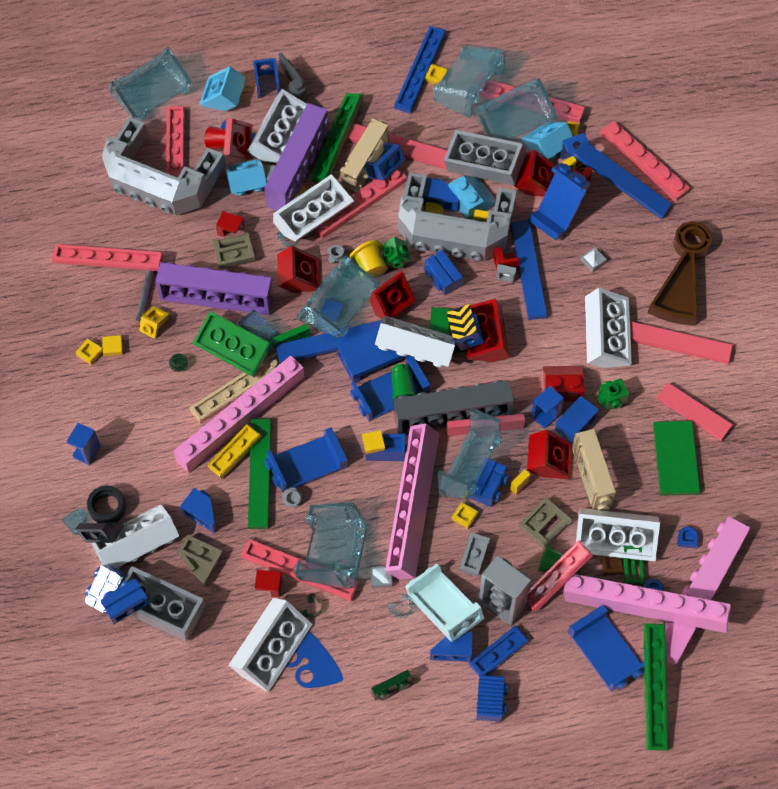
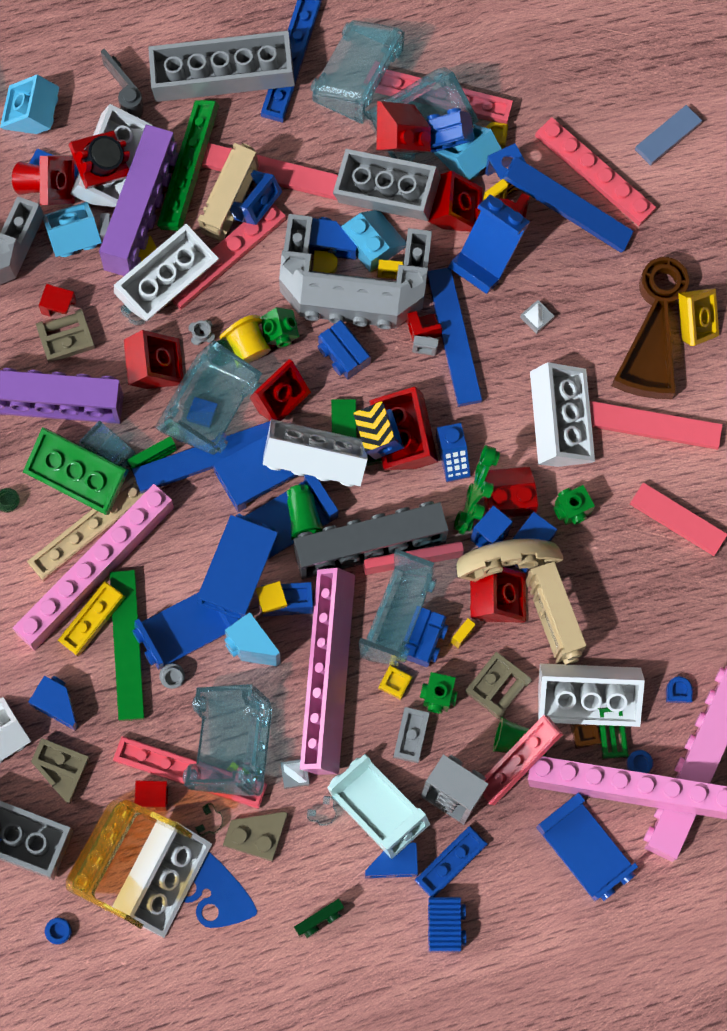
camera: 10 degrees left, 10 degrees up
(186, 680) = (58, 931): none -> blue tile
(227, 615) = (102, 848): none -> clear yellow windscreen
(260, 72) = (94, 70): blue piece -> none
(270, 124) = (101, 160): none -> piece
(347, 620) = (256, 835): none -> dark tan wing
(348, 418) = (237, 566): none -> blue panel
(355, 475) = (250, 642): none -> medium azure slope
(367, 69) = (221, 66): none -> light grey brick
(435, 74) = (313, 64): yellow tile -> none
(498, 118) = (402, 128): none -> red slope
(498, 523) = (439, 684): none -> green brick
(522, 350) = (453, 452): none -> blue slope
(532, 122) = (450, 129): none -> blue brick
(542, 371) = (476, 491): none -> green plant
(547, 423) = (494, 556): none -> tan brick
(655, 687) = (650, 895): green tile -> none
(676, 458) = (658, 584): green tile -> none
(702, 138) = (668, 135): none -> sand blue tile
(718, 264) = (698, 316): none -> yellow slope

